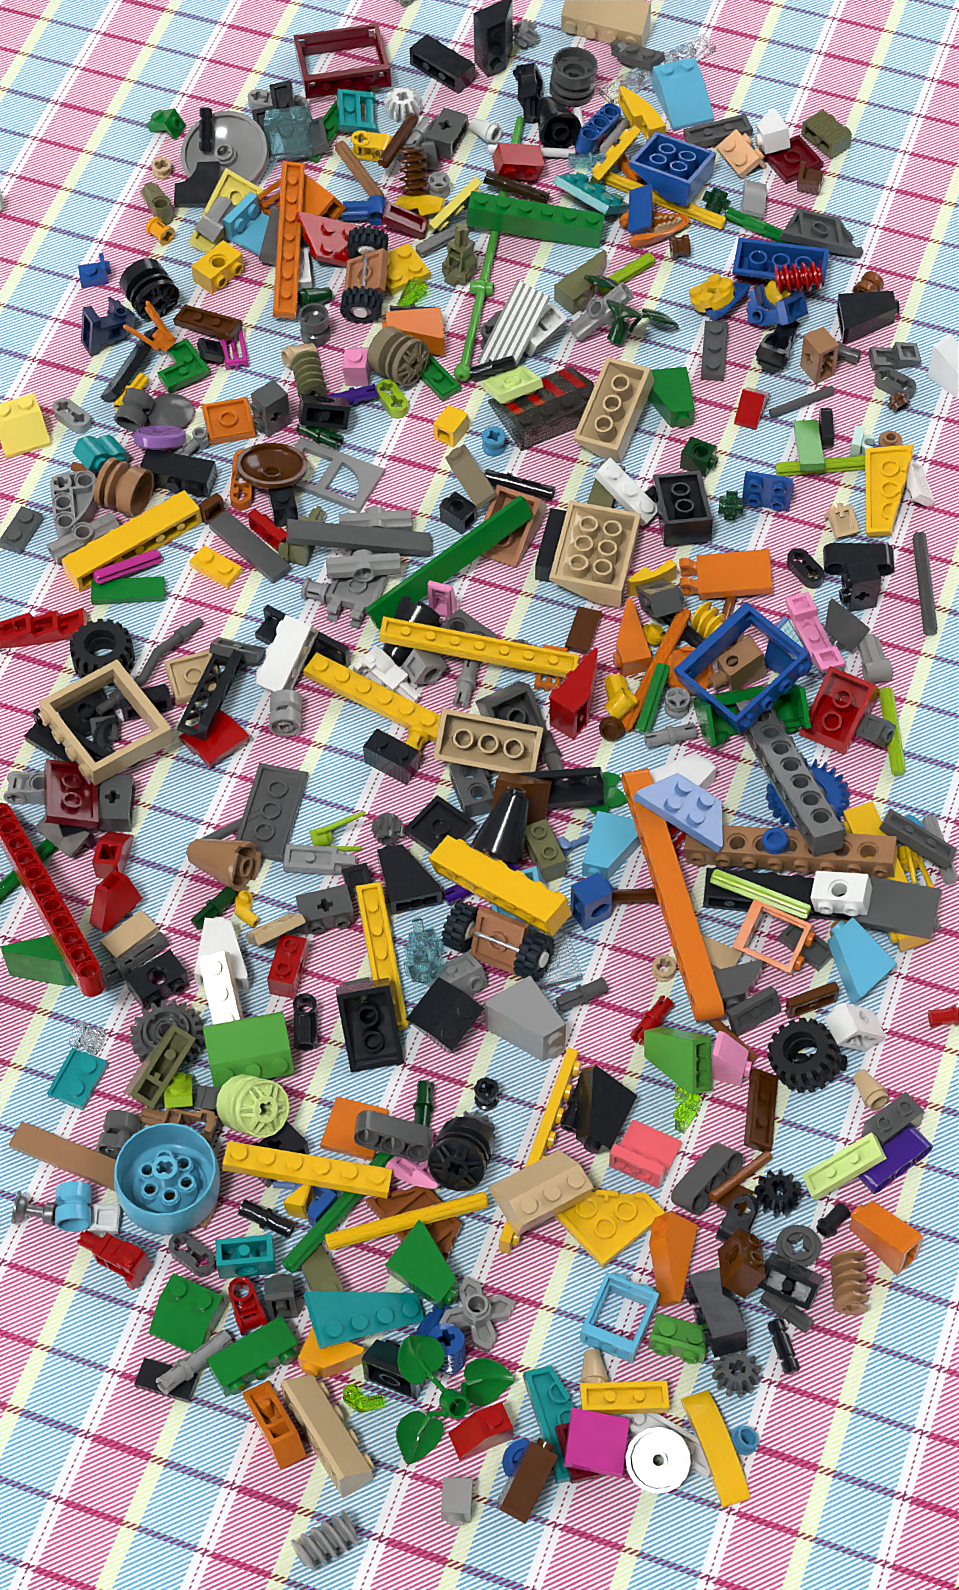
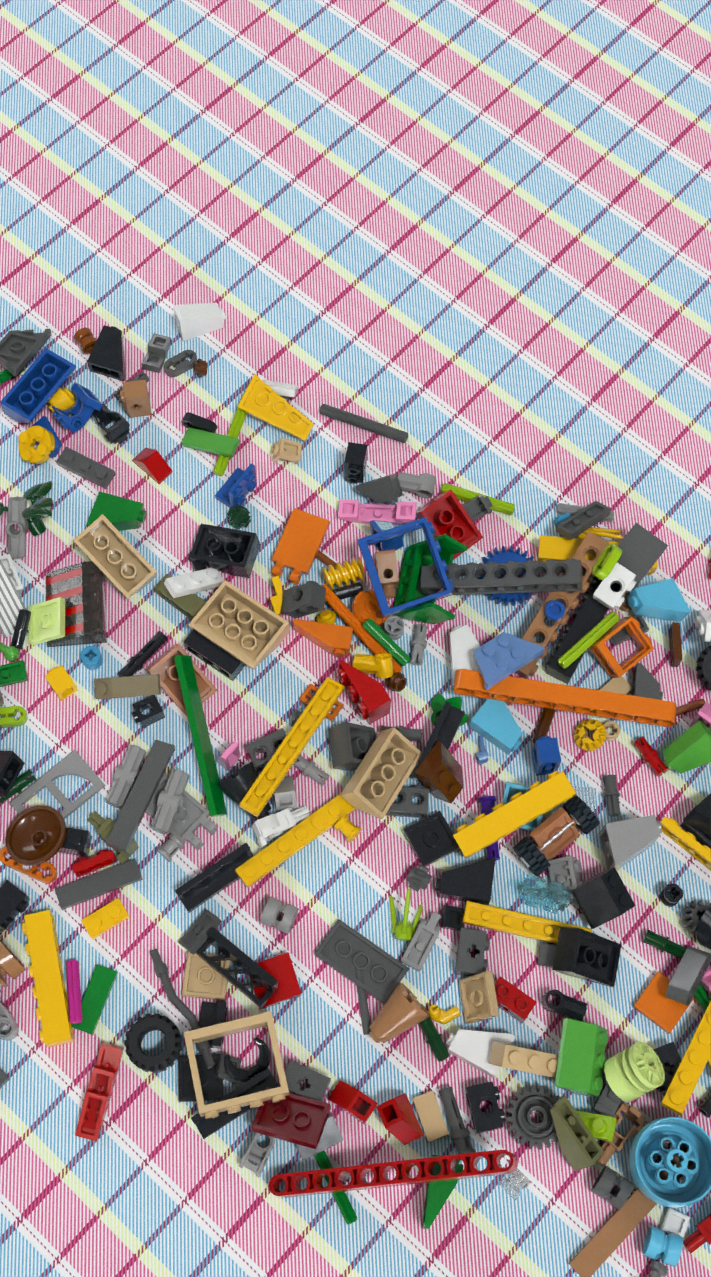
camera: 70 degrees left, 10 degrees up
(77, 1079) = (544, 1204): teal plate -> none
(81, 535) = (28, 1031): light grey piece -> none
(211, 508) = (47, 900): reddish brown plate -> none
(286, 655) = (231, 894): white brick -> none
(391, 756) = (355, 849): black brick -> none
(505, 827) = (470, 792): black cone -> none
(544, 851) = (485, 772): olive brick -> none
(583, 630) = (298, 665): reddish brown tile -> none
(646, 953) = (587, 743): none -> yellow gear
(699, 456) = (182, 527): dark green brick -> none
(754, 1010) = (667, 678): dark grey plate -> none
(798, 277) = (66, 377): red piece -> none
(801, 401) = (164, 430): dark grey bar -> none
(803, 569) = (314, 493): black beam -> none
(839, 554) = (325, 455): black beam -> none
(859, 441) = (224, 410): light aqua tile -> none
(864, 866) = (606, 561): none -> lime beam
(889, 438) = (231, 394): medium nougat plate -> none

